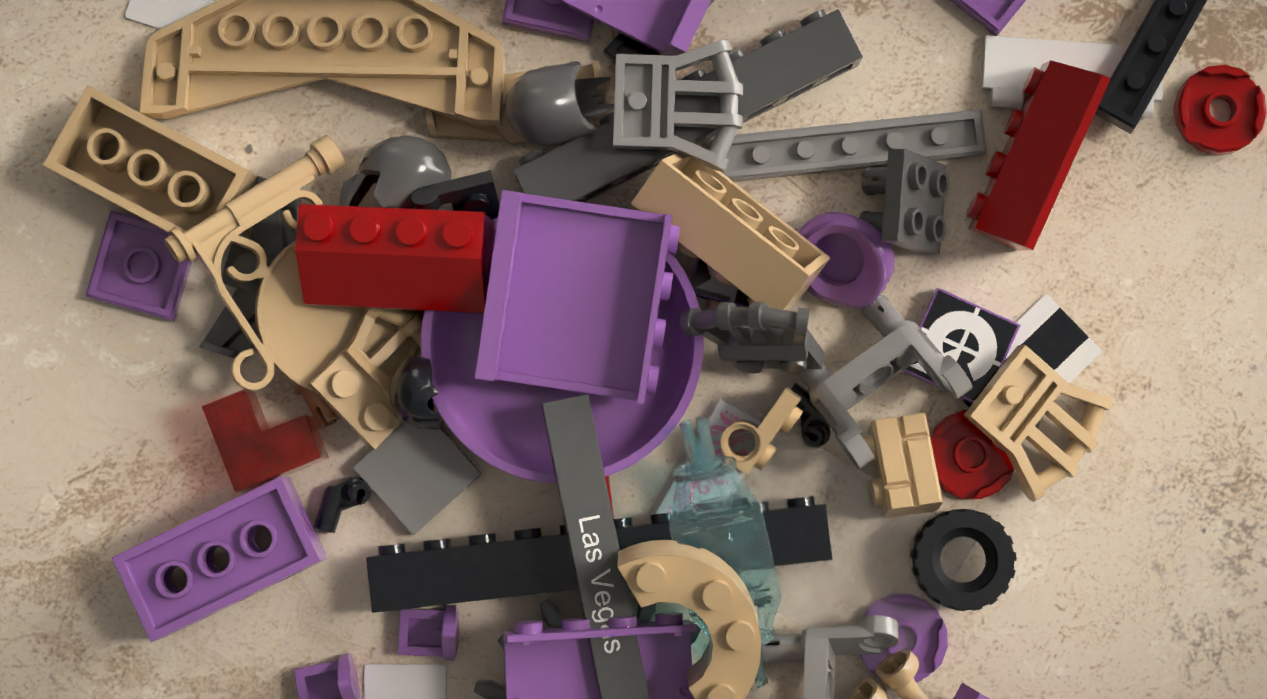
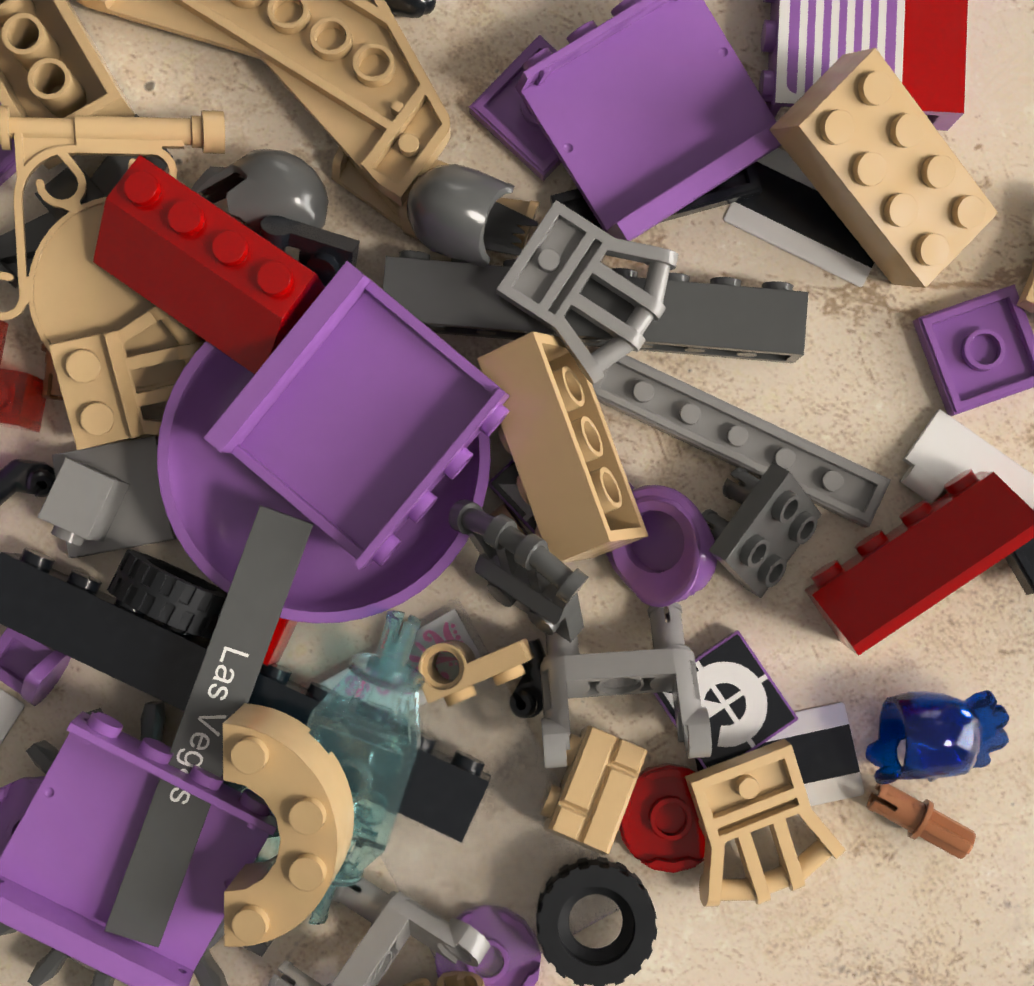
camera: 30 degrees right, 0 degrees up
(402, 485) = (82, 502): none -> light grey brick
(413, 392) = (138, 418): black hair -> none
(511, 511) = (168, 593): none -> black tyre
(1128, 273) = (940, 733): none -> clear blue piece
(1153, 343) = (922, 820): none -> nougat axle

